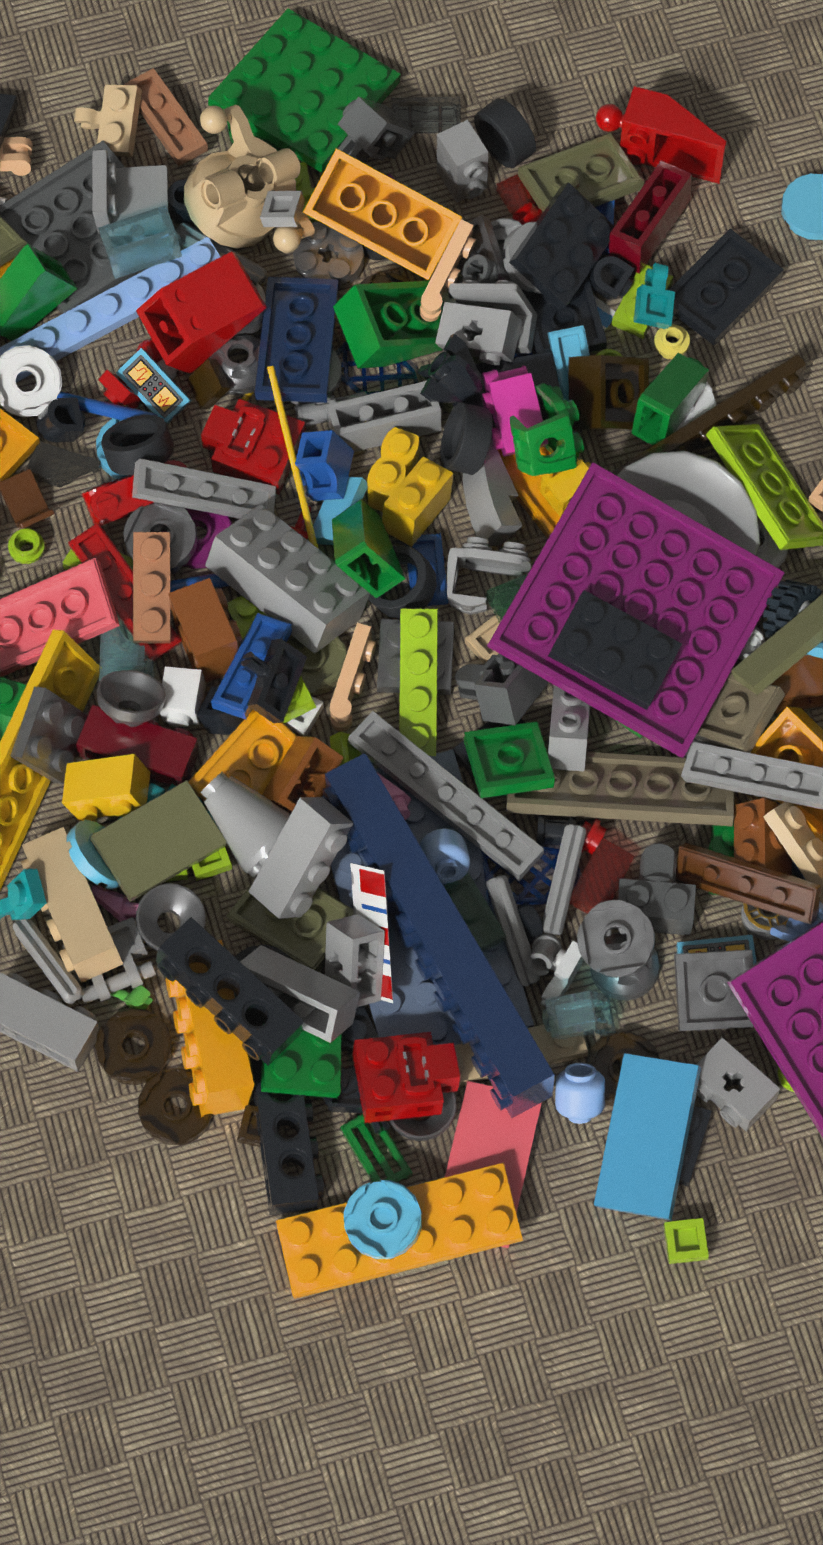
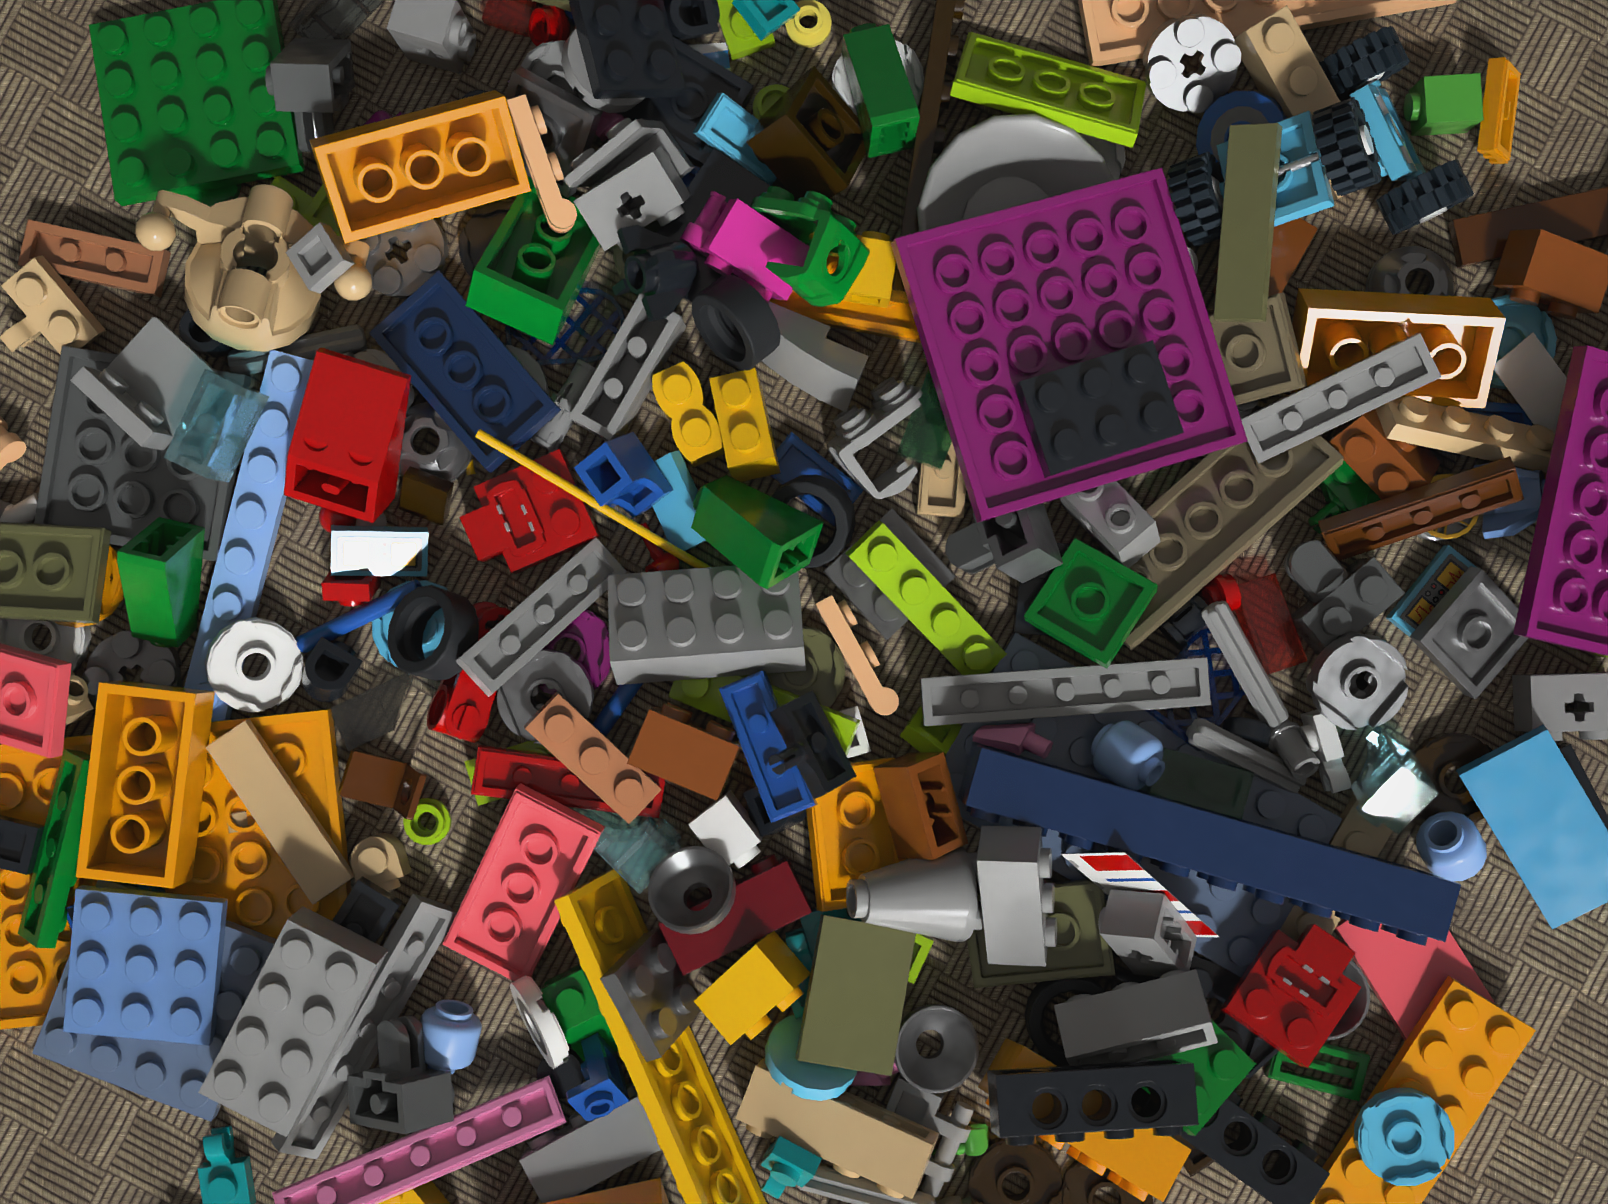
camera: 40 degrees left, 20 degrees up
(473, 266) = (561, 129): dark grey bush -> none

